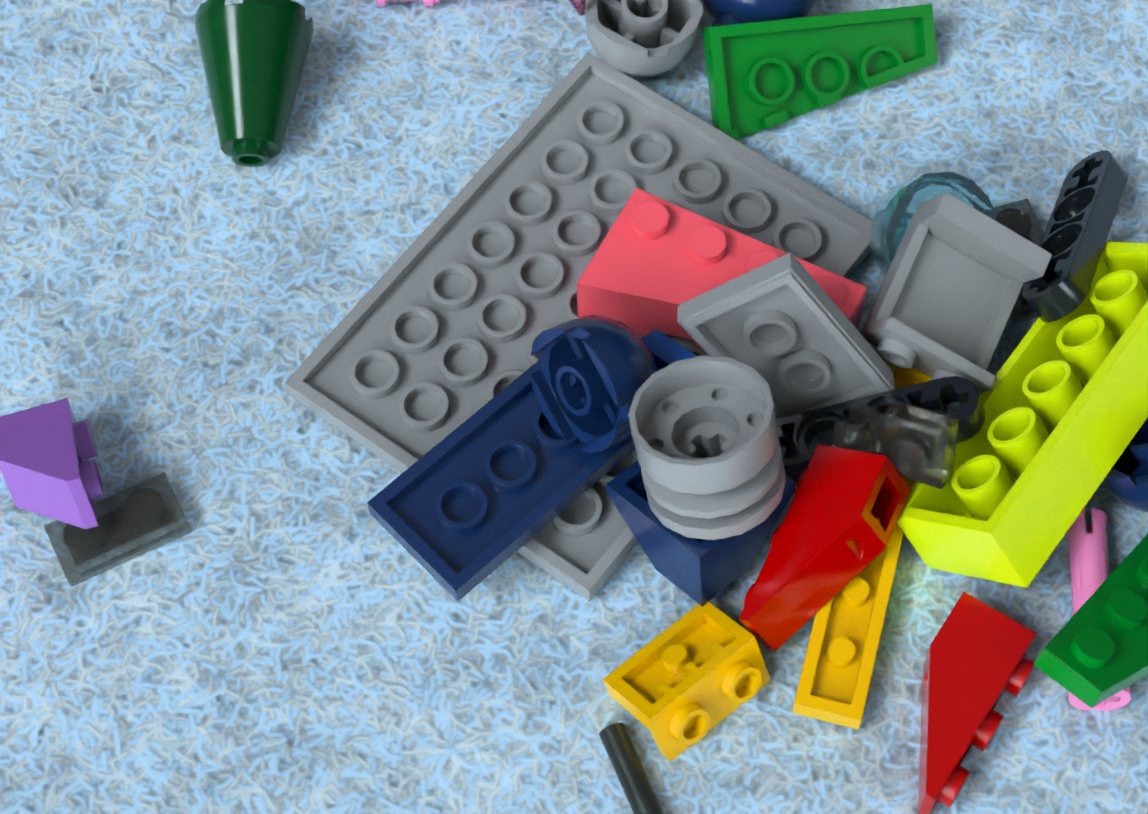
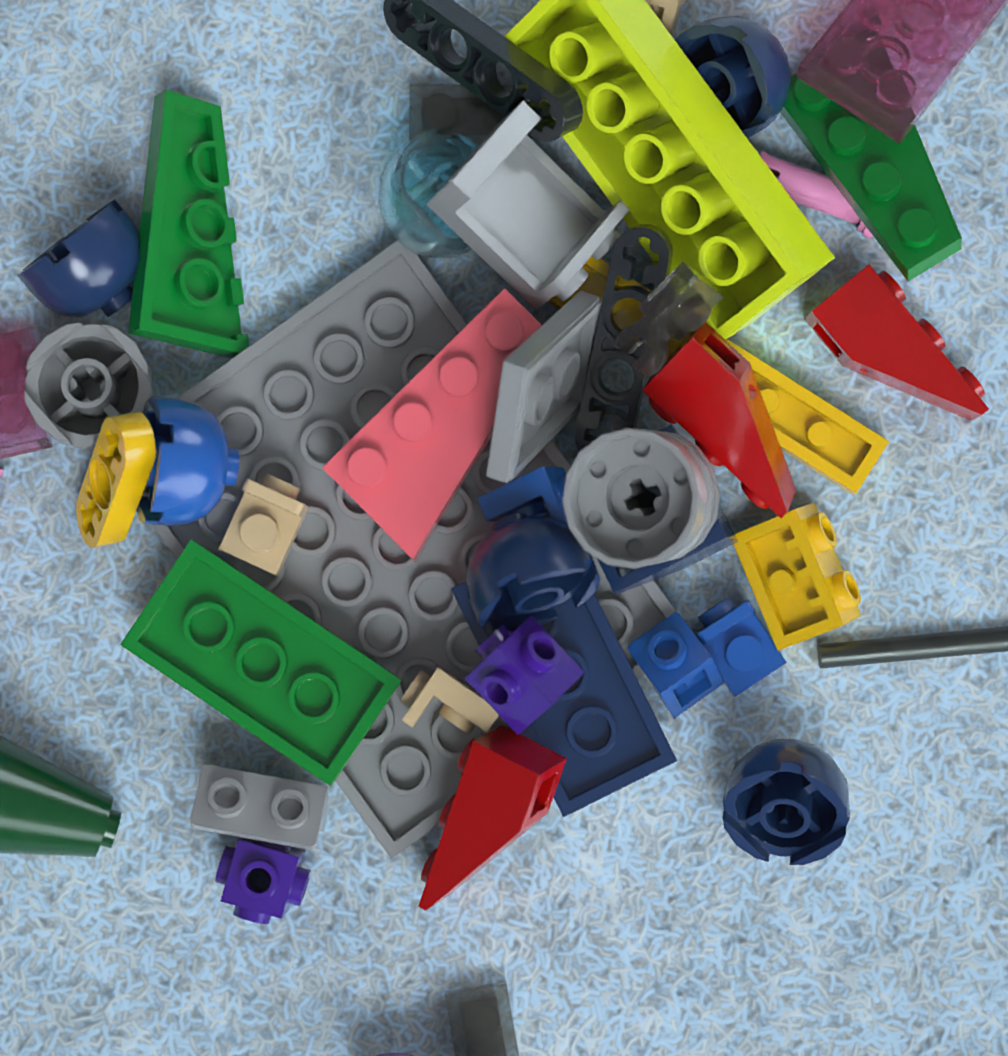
camera: 75 degrees left, 25 degrees up
(239, 280) = (287, 879): none -> dark purple brick
(303, 253) = (259, 807): none -> light grey bracket
(354, 436) = (500, 796): none -> red slope
(438, 217) = (261, 662): none -> green plate
(446, 717) = (787, 802): none -> dark blue cylinder
(455, 373) = (461, 706): none -> tan bracket
(497, 404) = (522, 673): none -> dark purple brick
(551, 582) = (676, 664): none -> blue bracket
(567, 50) = (115, 479): none -> yellow beam
(570, 185) = (265, 523): none -> tan bracket
(597, 639) = (738, 644): none -> blue bracket
(600, 92) = (188, 465): none -> blue cylinder

